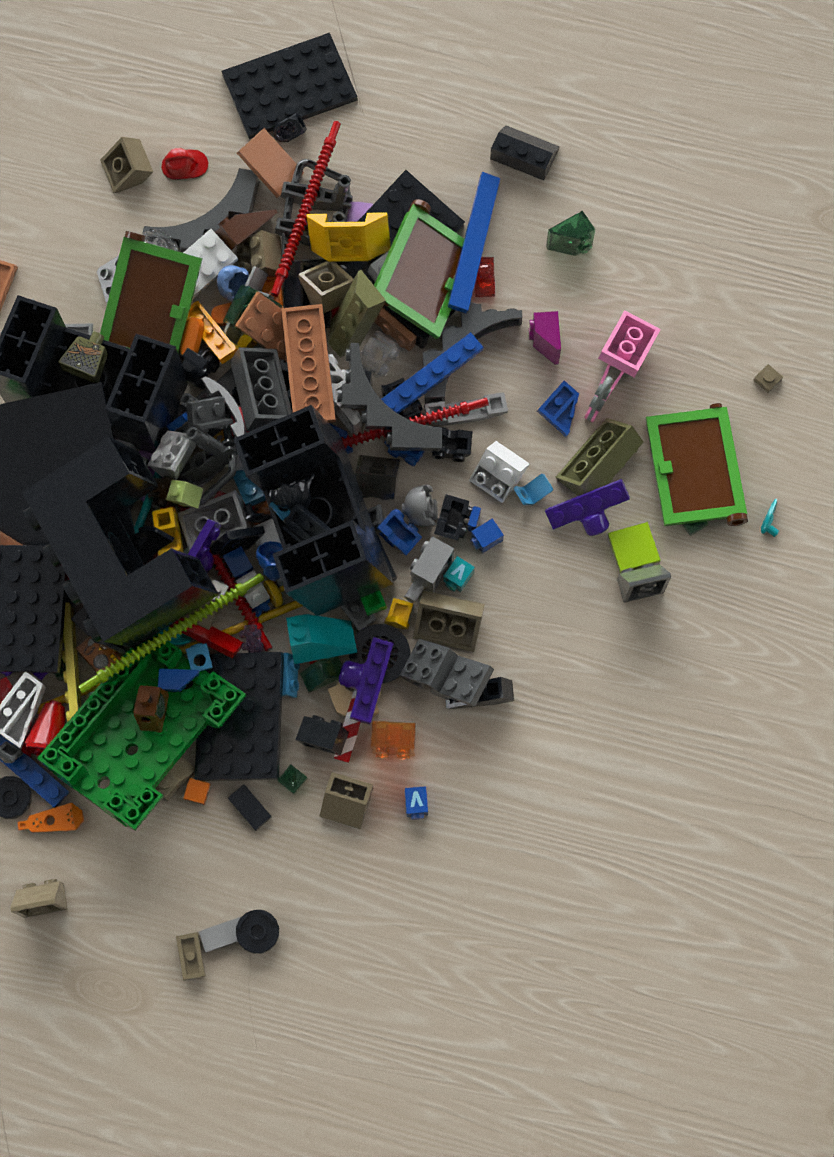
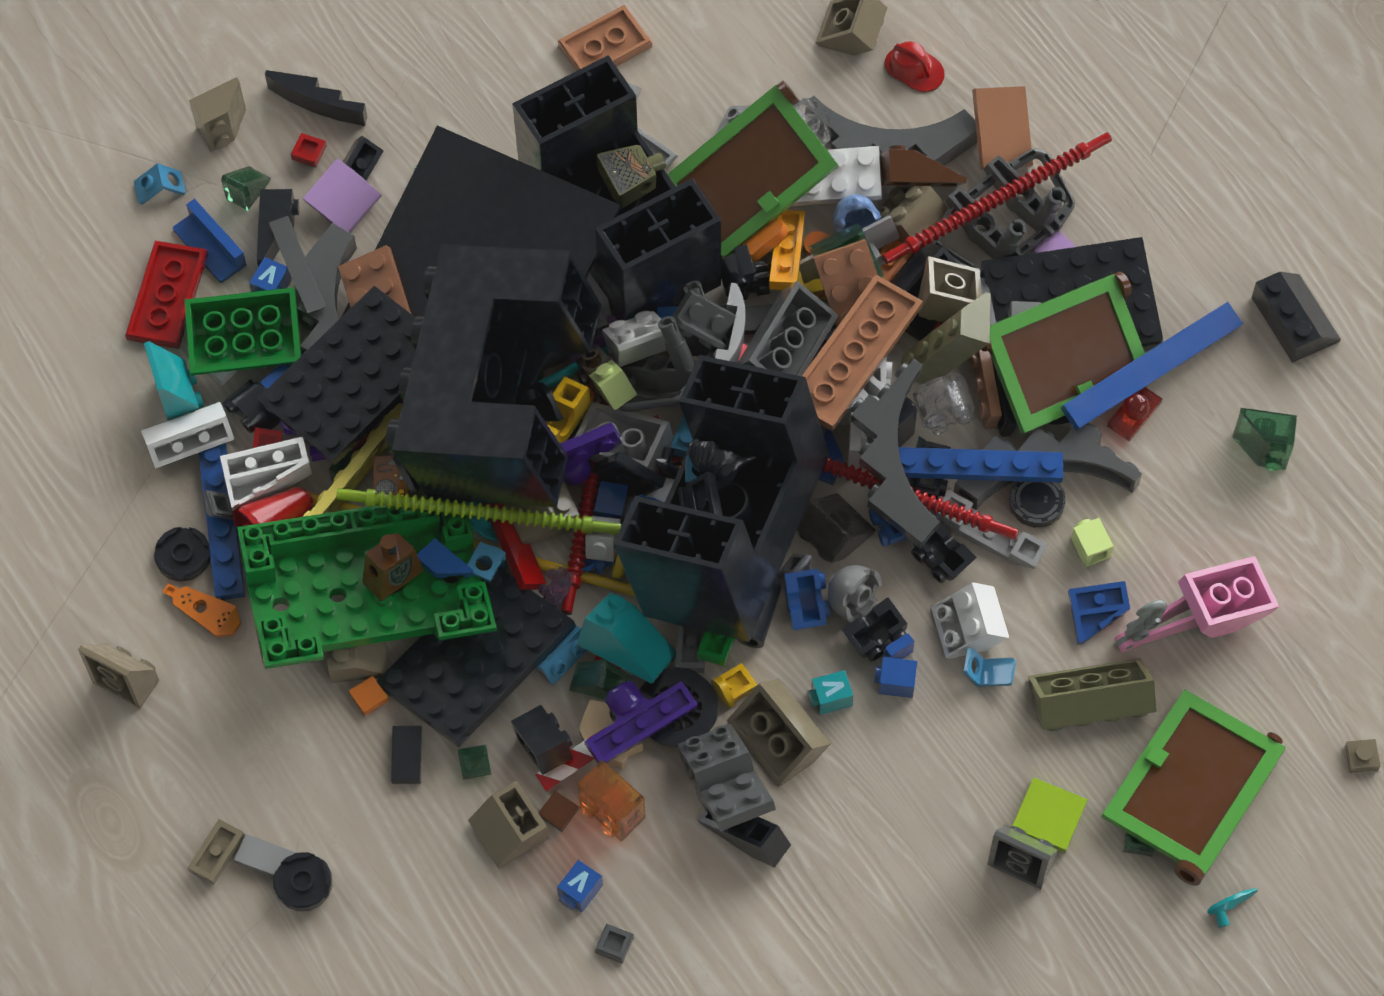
camera: 40 degrees right, 10 degrees down
(289, 128) = (1056, 109): rock -> none
(290, 81) = (1097, 67): black plate -> none
(349, 239) = (1015, 262): yellow slope -> none
(365, 768) = (558, 811): none -> reddish brown tile
(429, 568) = (803, 658): light grey brick -> none
(462, 817) = (614, 943): none -> dark grey tile
(476, 373) = (1037, 502): none -> tile
(525, 371) = (1091, 541): none -> yellowish green brick
(545, 335) = (1147, 517): magenta slope -> none
(589, 508) = (1032, 732): dark purple plate -> none

